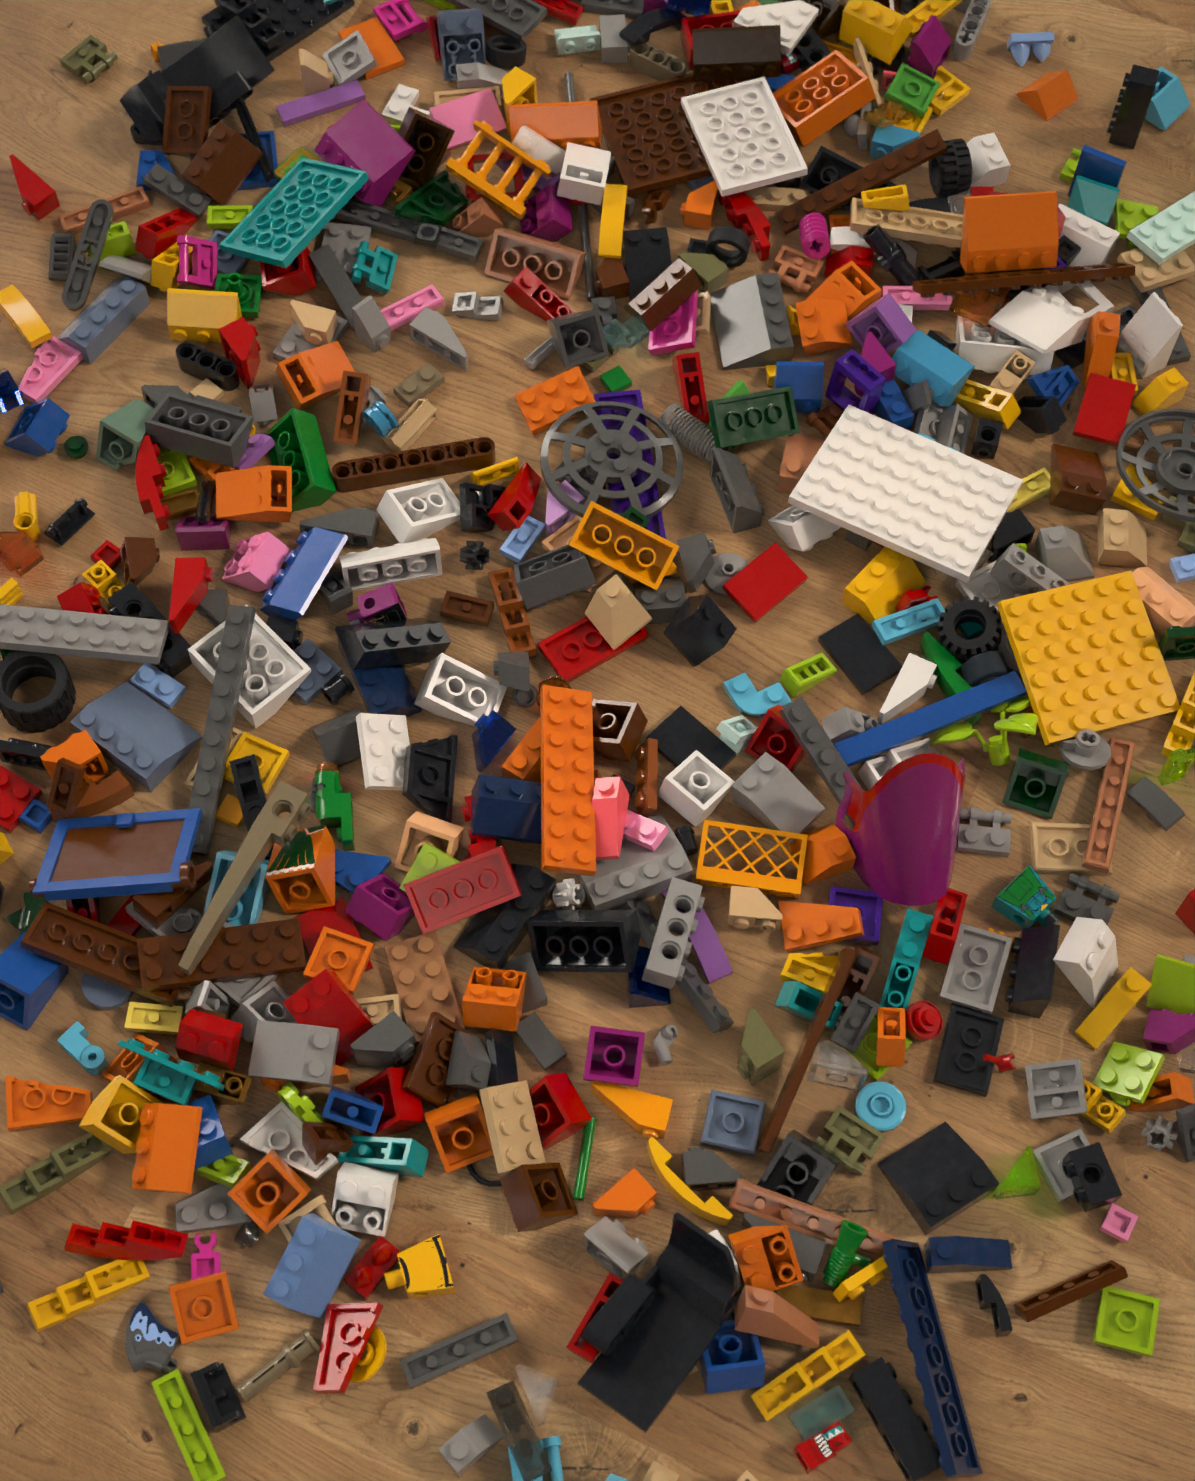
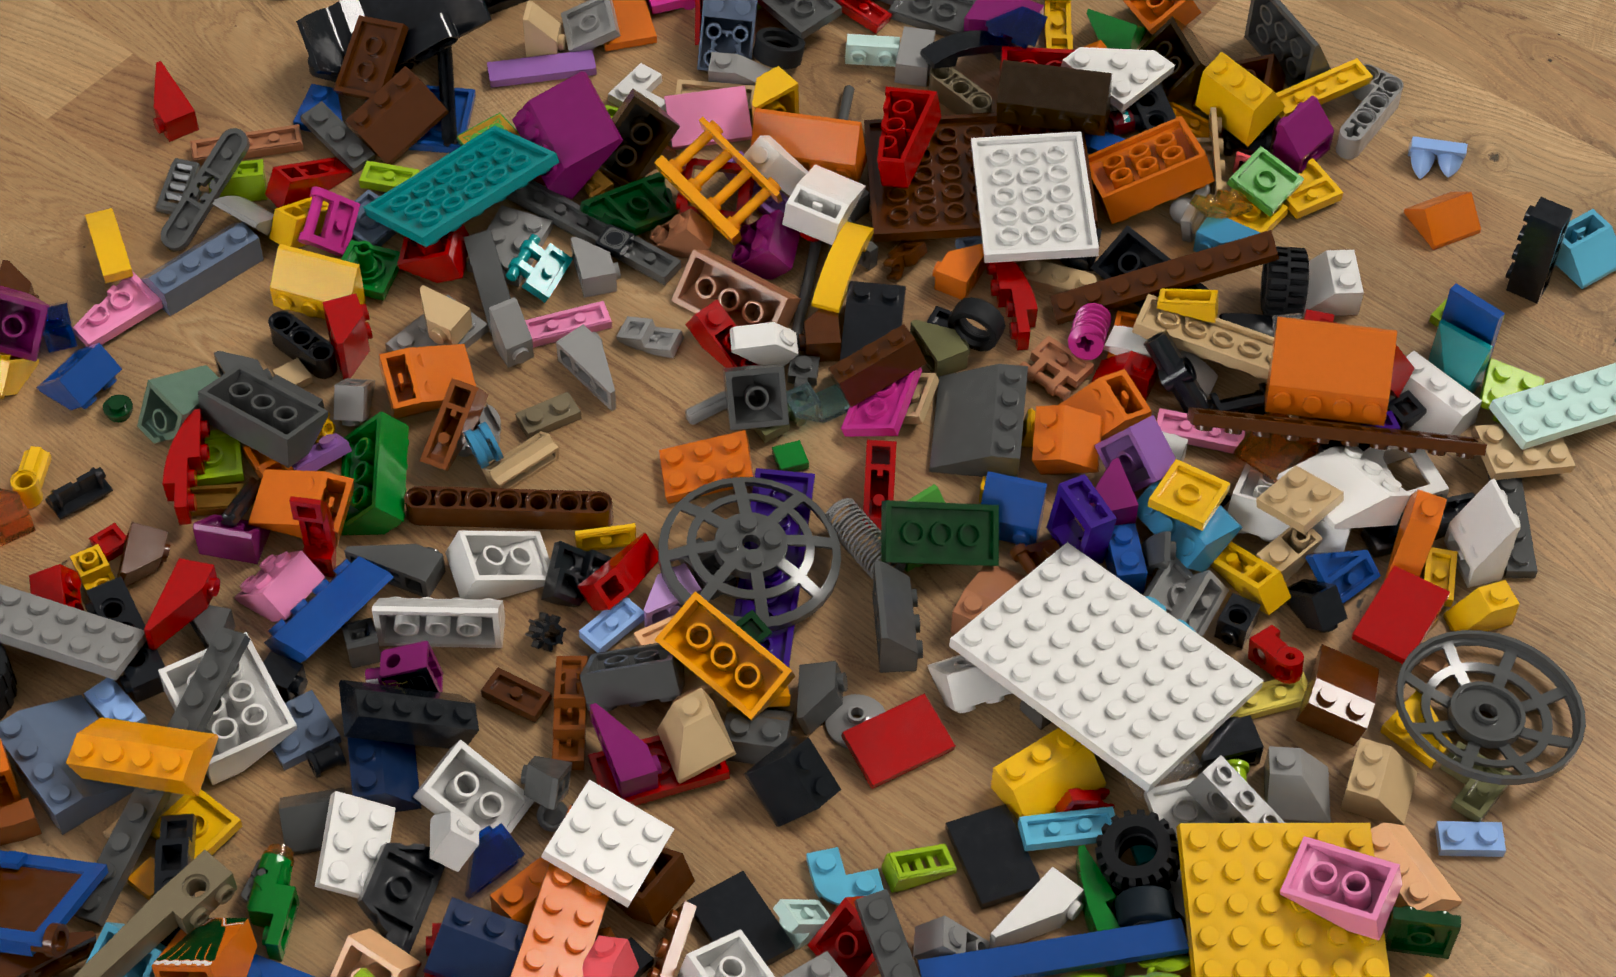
camera: 15 degrees right, 10 degrees down
(202, 718) = (142, 755): none -> light orange slope
(277, 515) = (317, 532): none -> red slope
(416, 259) = (594, 268): none -> light grey slope
(459, 729) = (452, 839): none -> white slope
(568, 637) = (626, 754): none -> magenta slope
(572, 294) = (764, 343): none -> white slope
(581, 707) = (607, 843): none -> white plate
(630, 101) = (906, 133): none -> red wedge
(931, 349) = (1189, 494): none -> yellow plate
(1013, 336) = (1300, 499): none -> tan plate
(1023, 459) = (1276, 656): none -> red leg
(1127, 621) = (1343, 886): none -> bright pink slope

